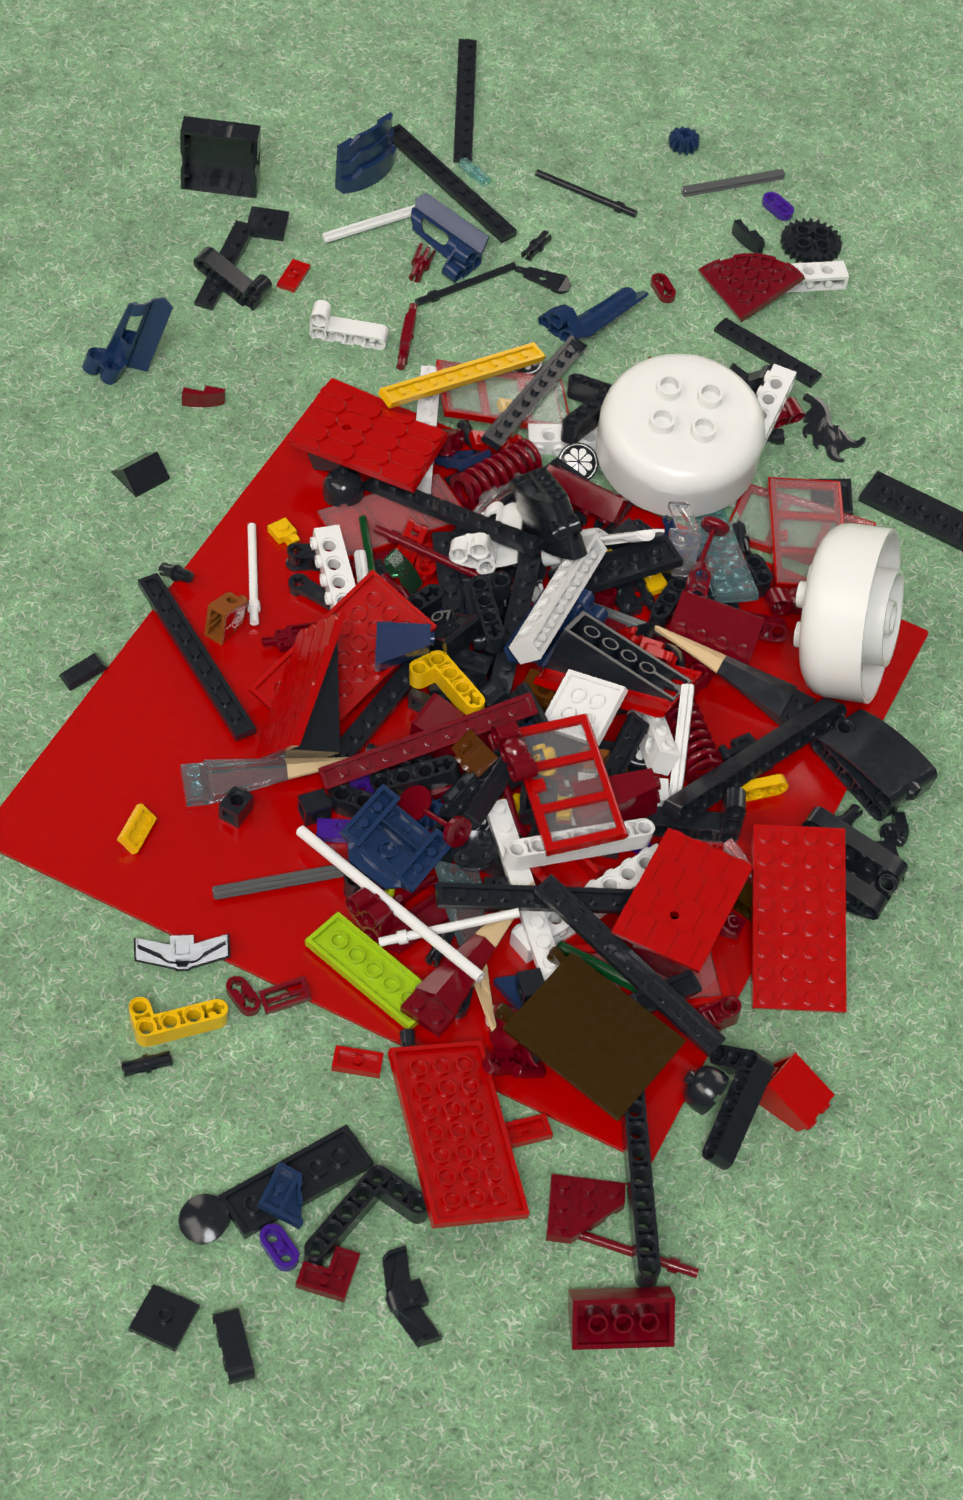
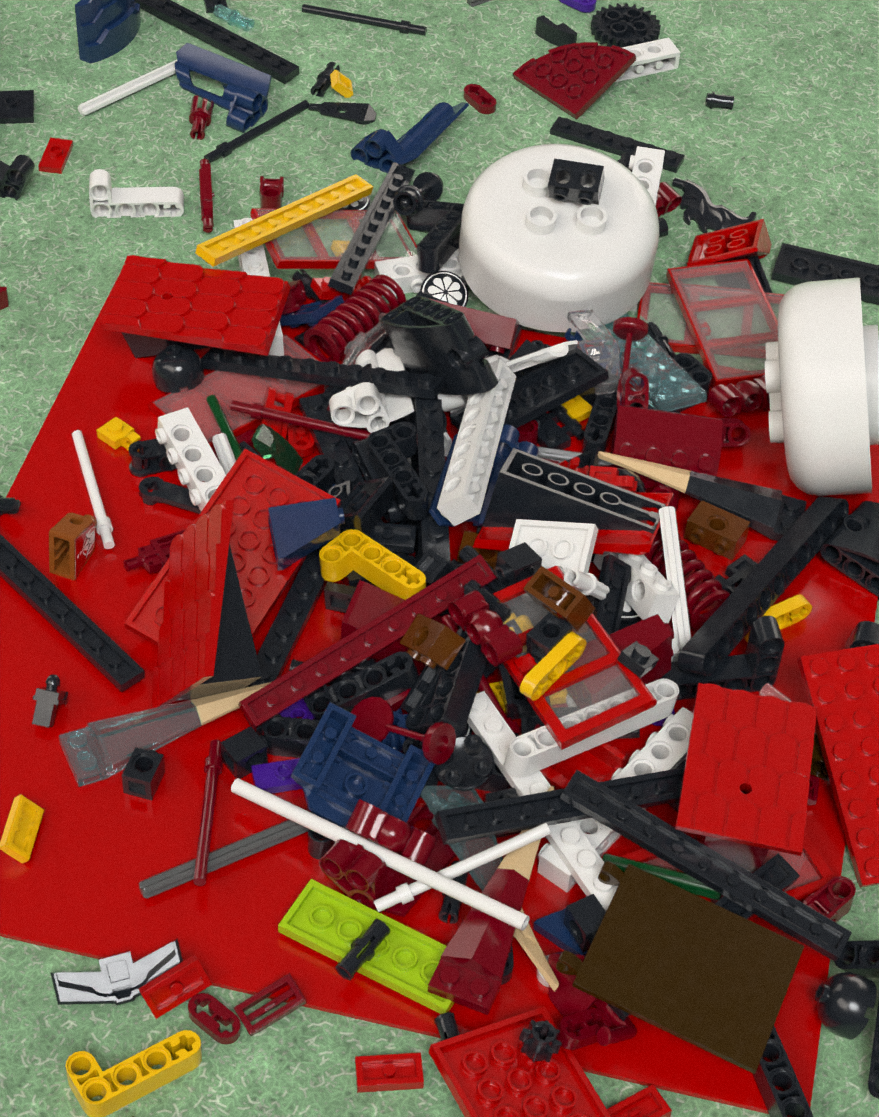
camera: 10 degrees left, 5 degrees down
(178, 736) = (47, 701): none -> piece
(220, 967) = (175, 986): none -> red plate
(288, 813) = (212, 768): none -> dark red bar
(348, 979) = (375, 935): none -> black pin
(403, 891) = (391, 832): none -> dark red piece
(461, 345) = (271, 192): none -> dark red piece
(468, 1063) = (540, 1041): none -> black gear
(530, 739) = (494, 603): none -> black axle
(548, 253) = (341, 84): none -> yellow tile
(556, 706) = (517, 564): none -> black brick
(556, 791) = (553, 666): none -> yellow beam
(560, 770) = (546, 635): none -> black brick
(571, 374) = (410, 198): none -> black piece
(576, 740) = (559, 598): none -> reddish brown brick
(604, 732) = (586, 583): none -> white axle
(623, 800) = (638, 659): none -> black plate
(701, 391) = (577, 175): none -> black brick
(734, 708) = (717, 530): none -> reddish brown brick
(831, 464) = (731, 244): none -> red slope
(870, 328) = (719, 101): none -> black pin

